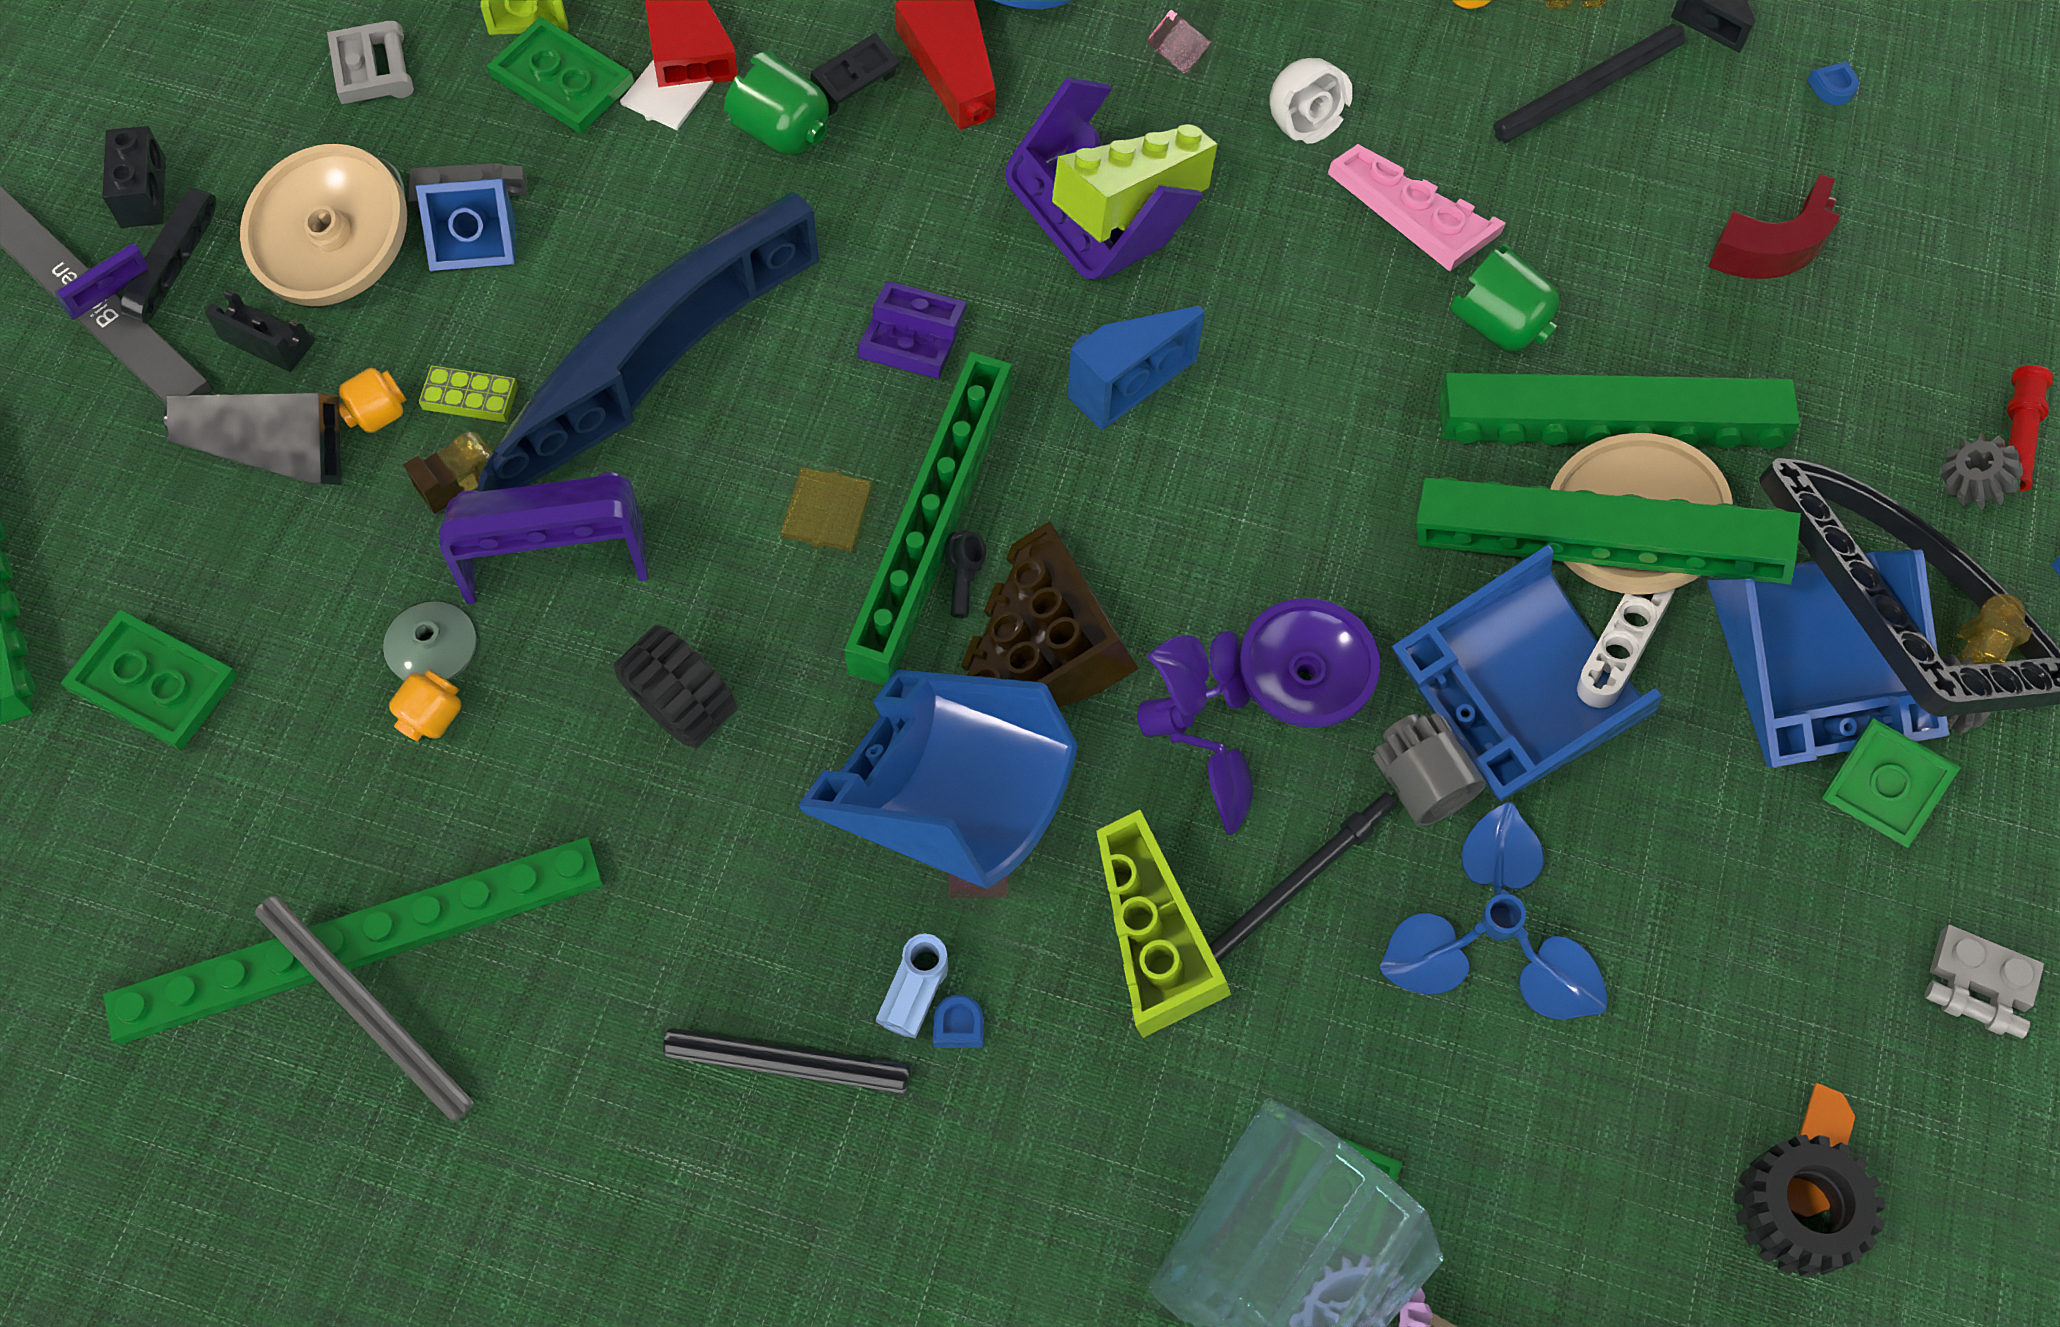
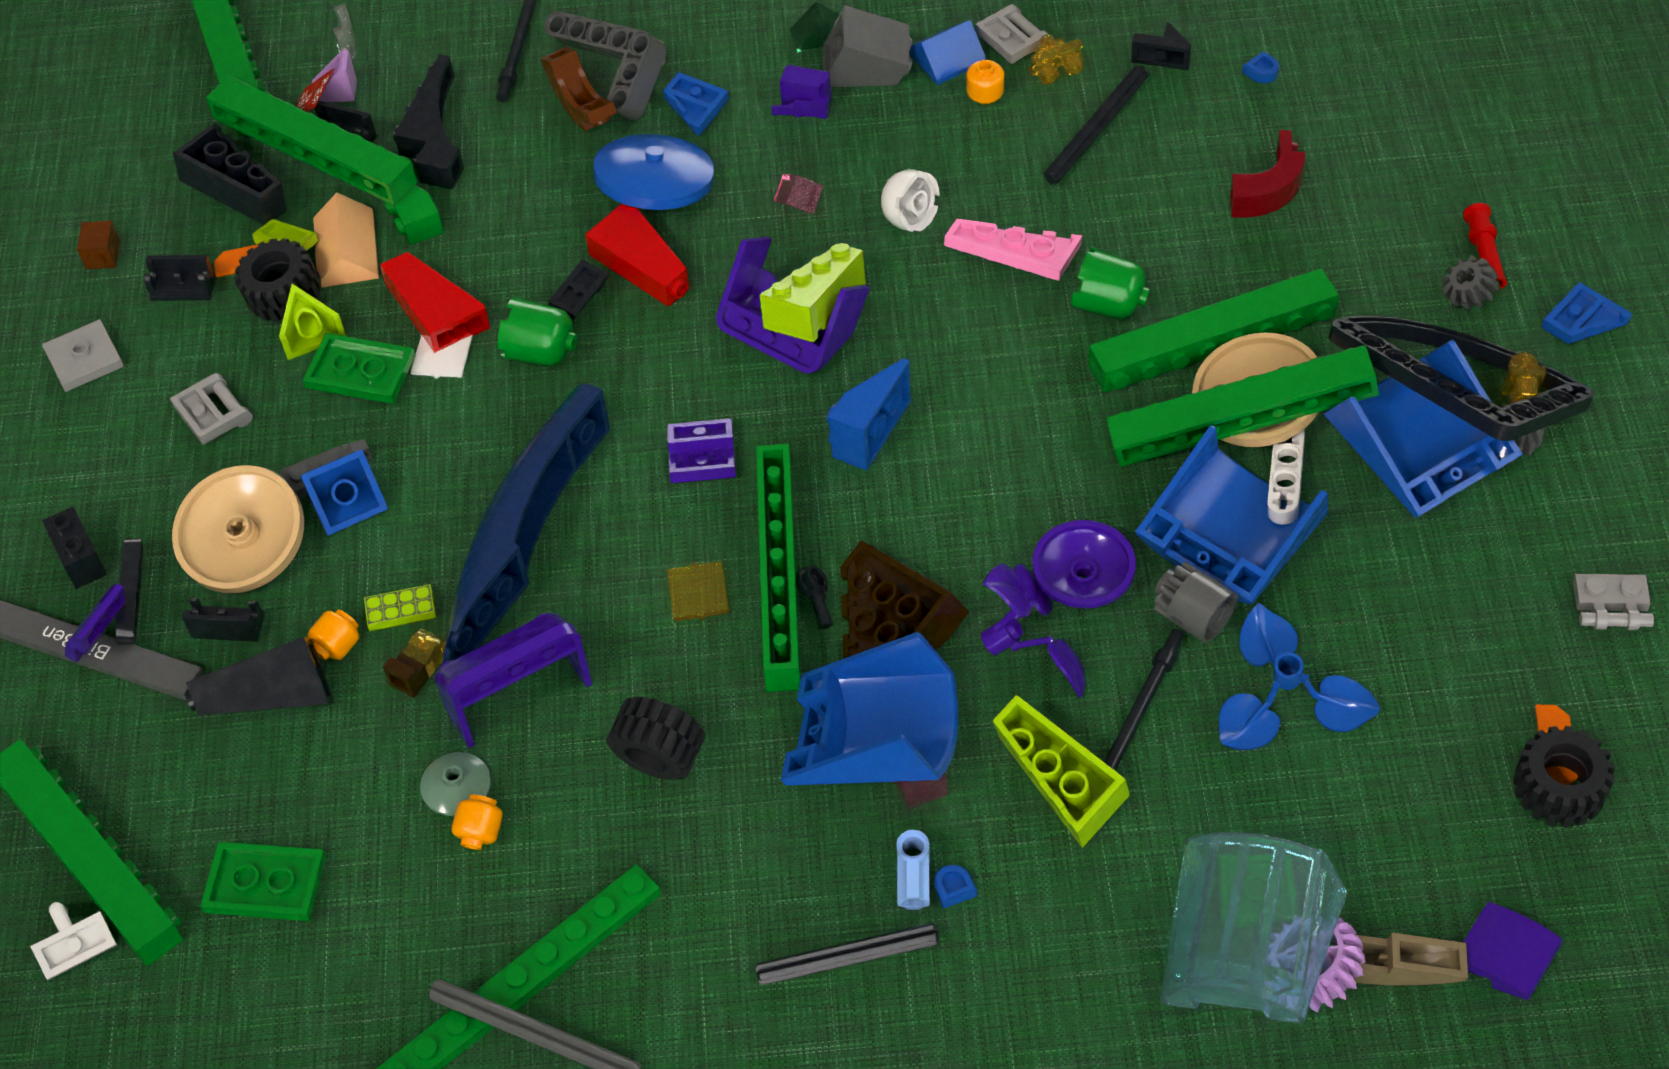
camera: 15 degrees left, 10 degrees down
(1890, 782) = (1498, 498): green tile -> none

